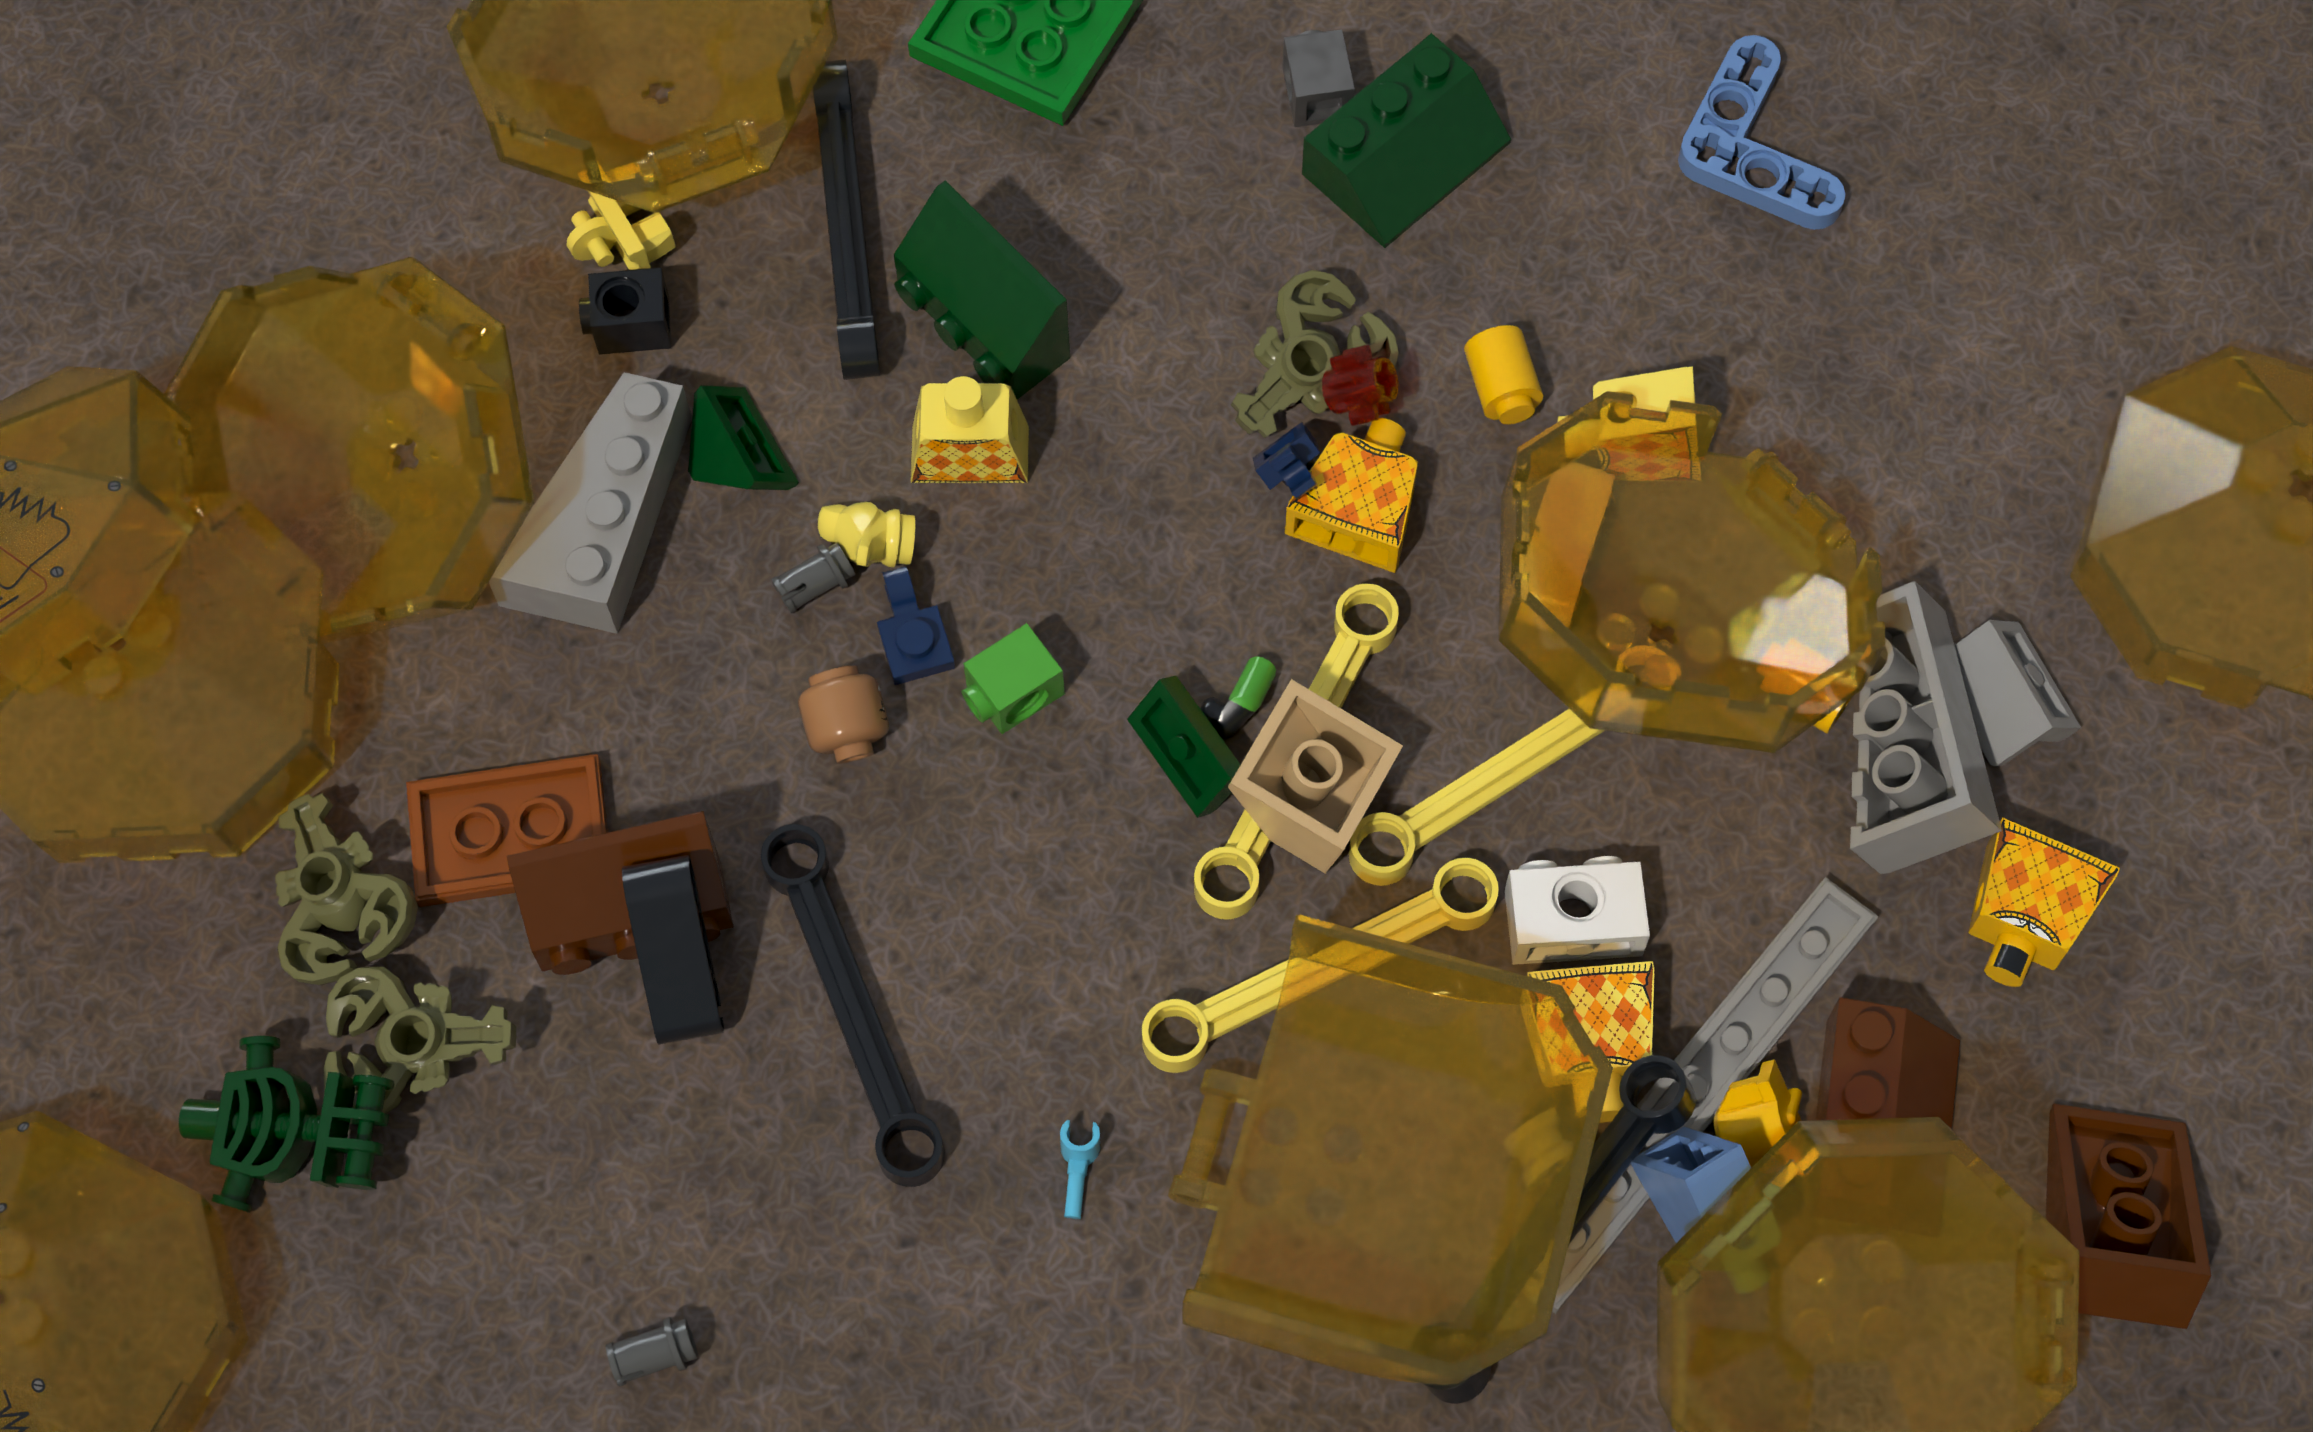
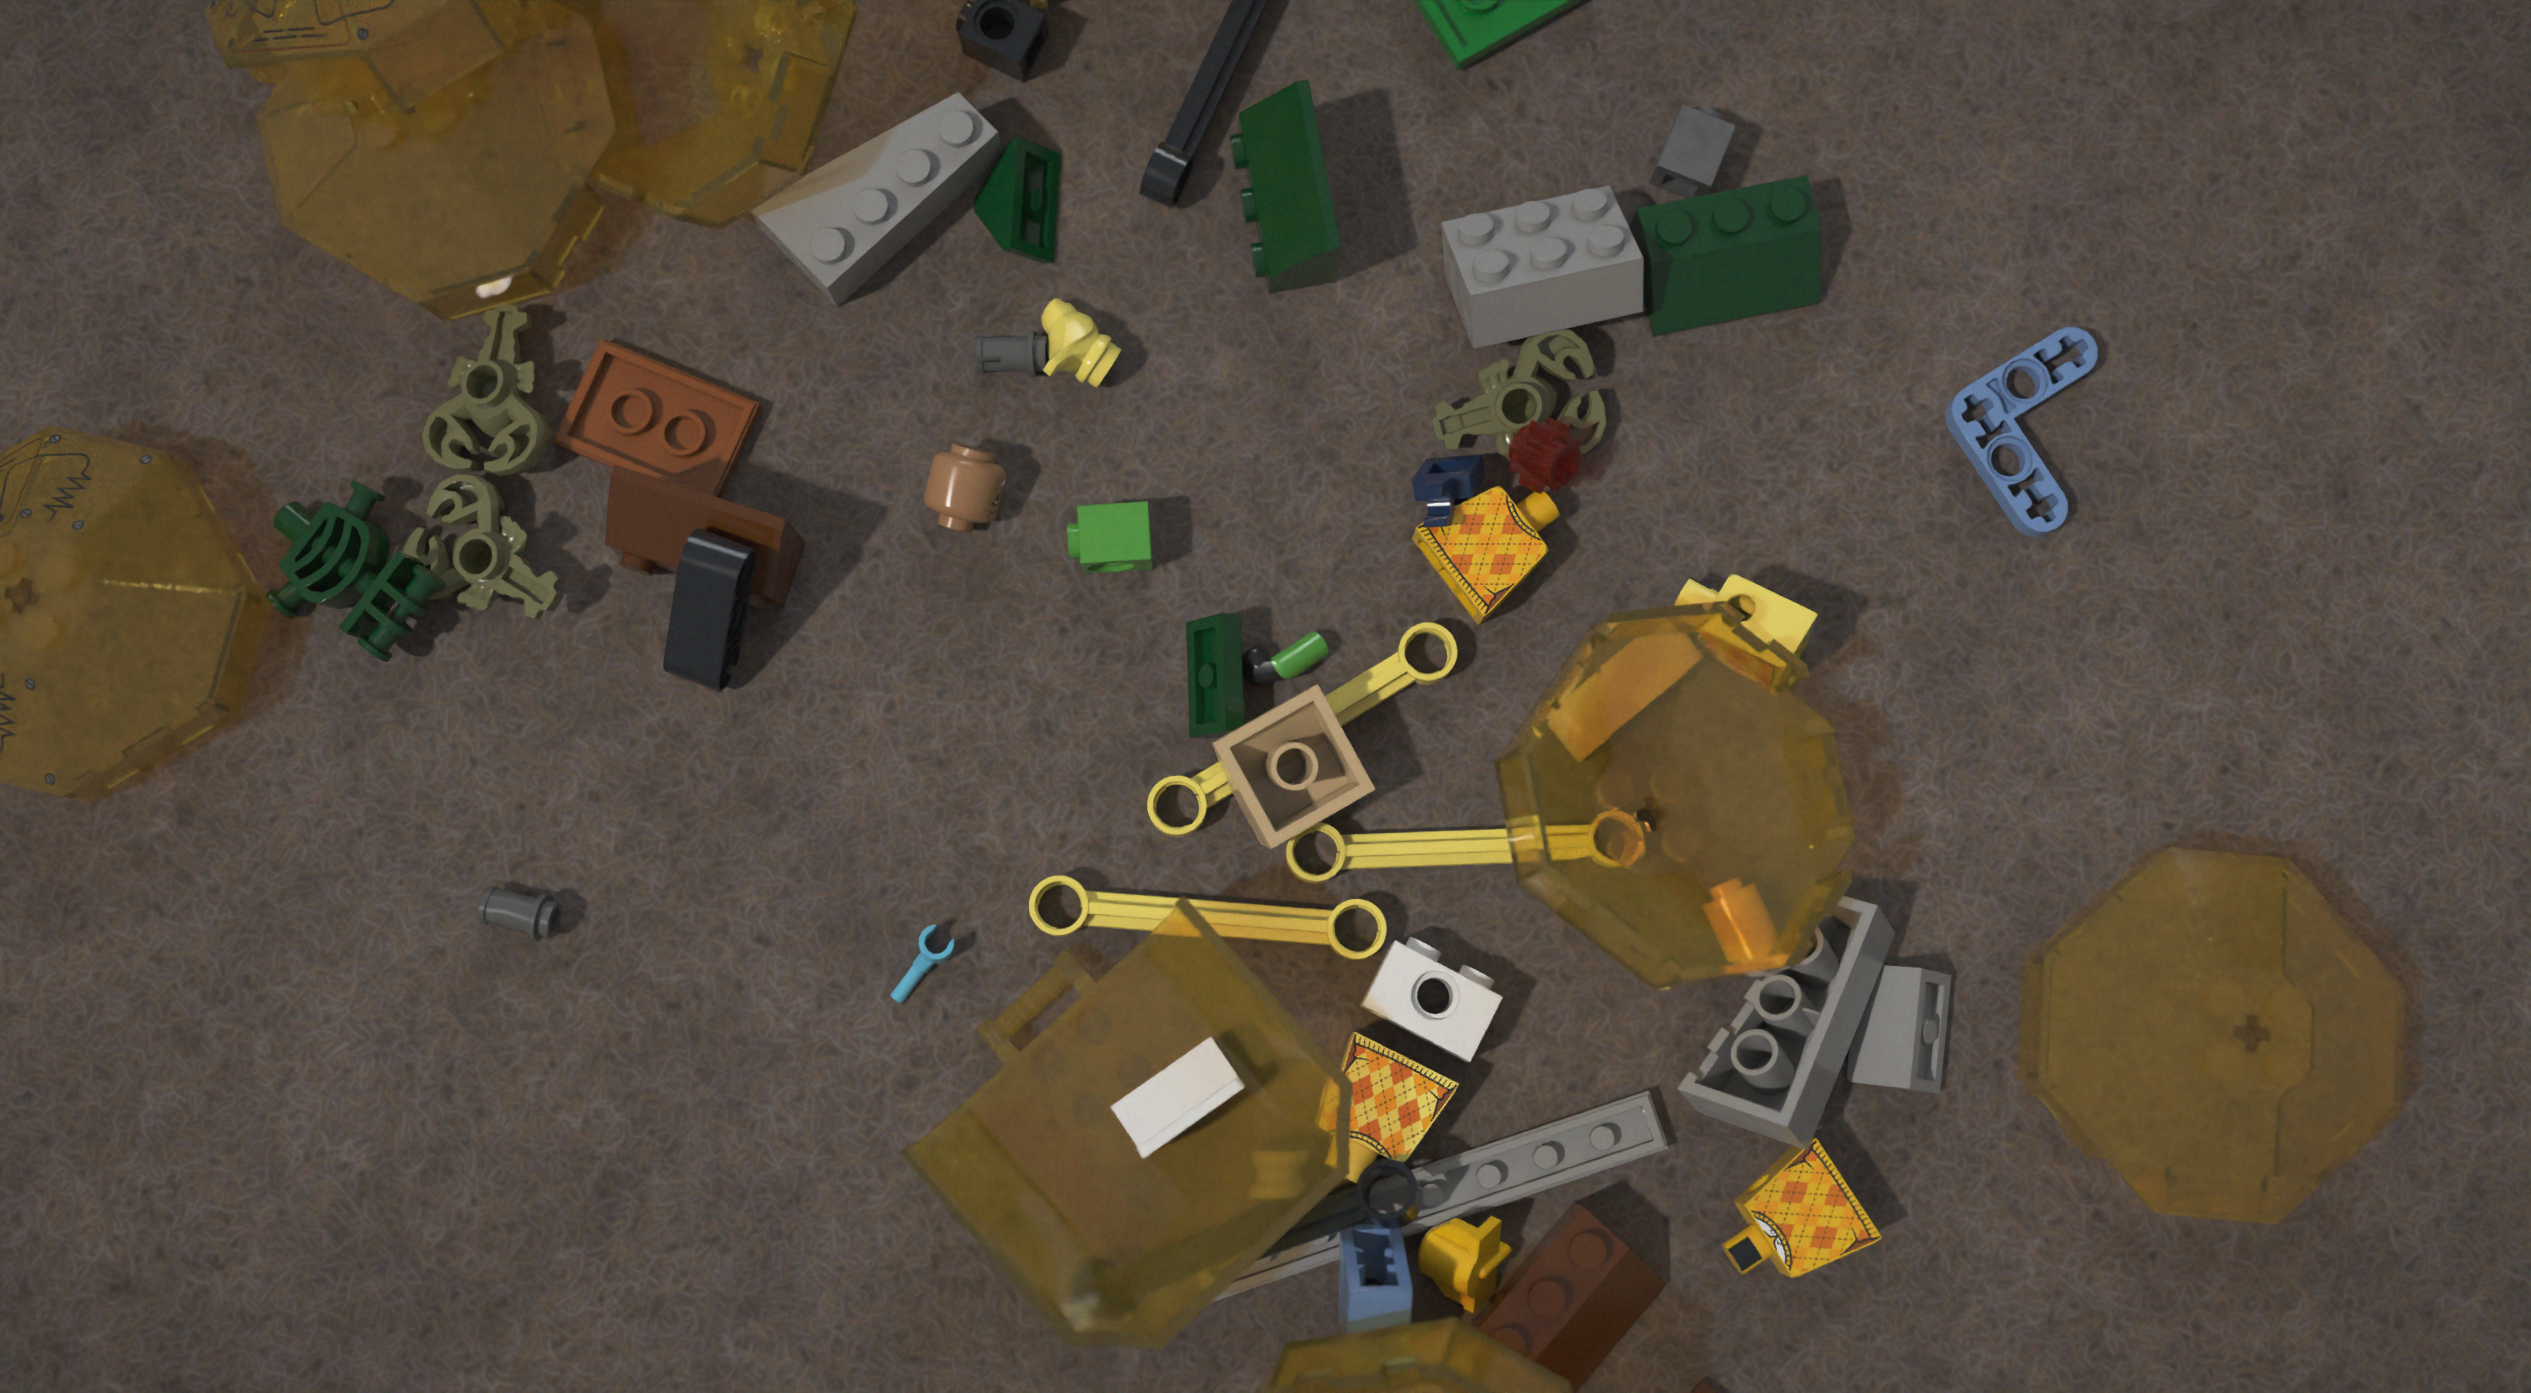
camera: 25 degrees right, 15 degrees up
(852, 1004) = (831, 727): black piece -> none
(914, 637) = (1062, 453): dark blue plate -> none
(969, 434) = (1204, 309): light yellow torso -> none
(1251, 232) = (1542, 266): none -> light grey brick
(1403, 1129) = (1177, 1097): none -> white panel
(1504, 374) = (1673, 512): yellow brick -> none

